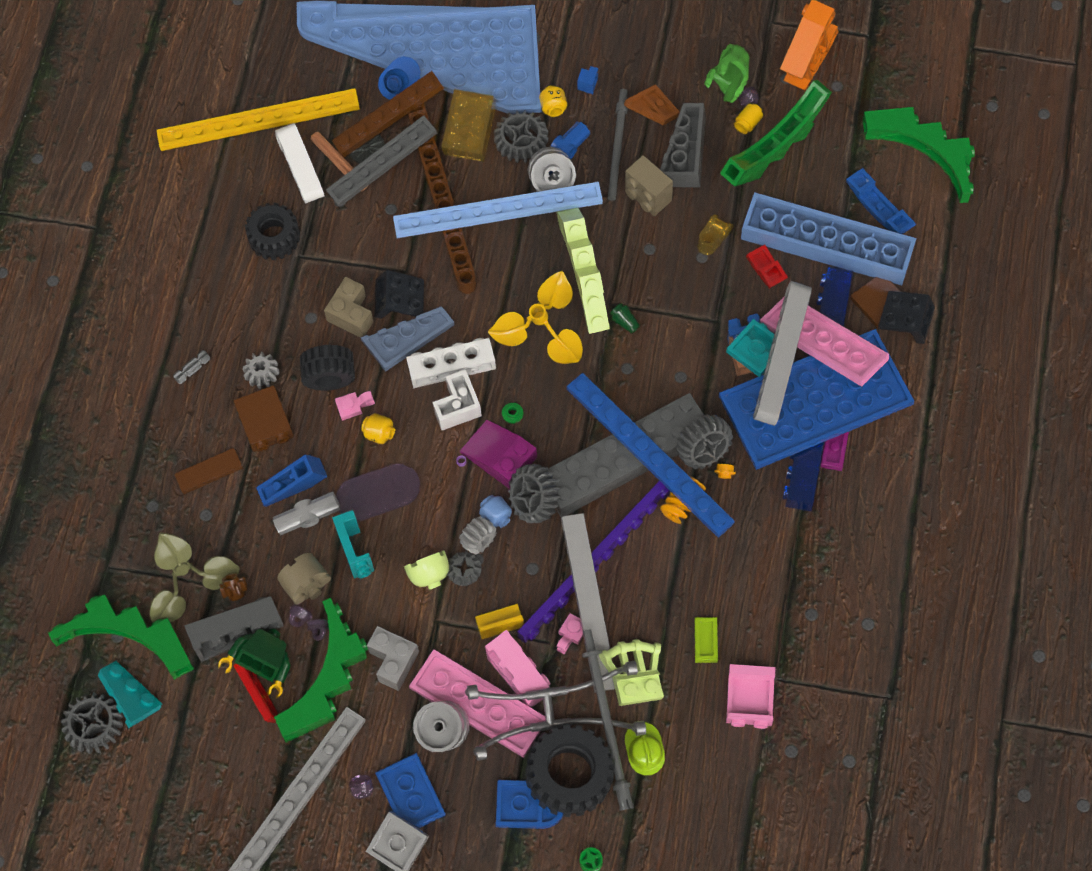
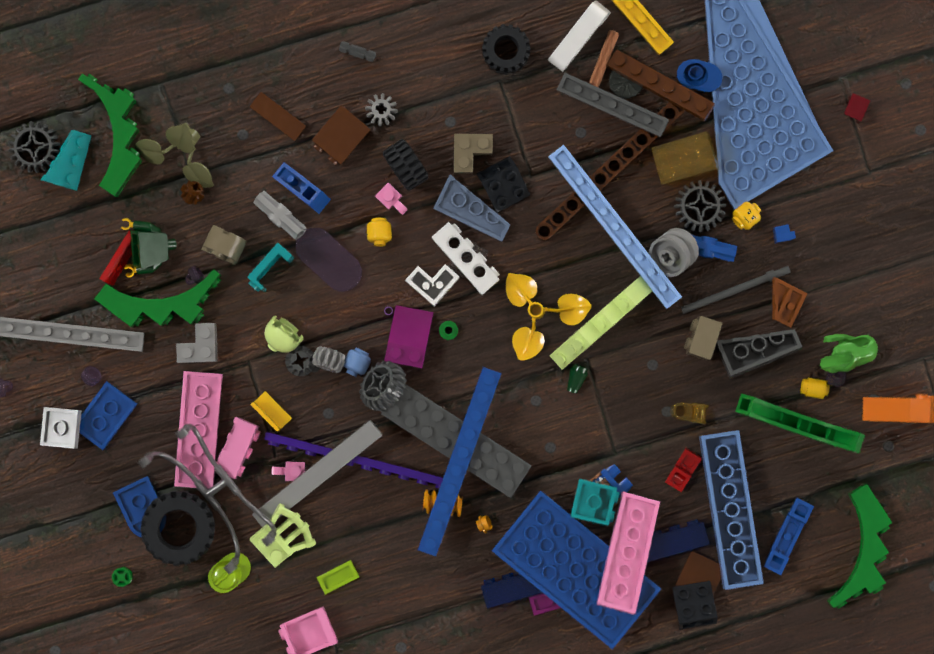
camera: 60 degrees right, 20 degrees up
(219, 632) = (159, 212): dark grey wedge -> none
(297, 611) = (197, 255): clear purple tile -> none
(428, 726) = (162, 413): light grey wheel -> none
(621, 784) = (190, 570): dark grey bar -> none
(704, 441) = (494, 498): dark grey gear -> none
(782, 353) = (595, 527): light grey beam -> none

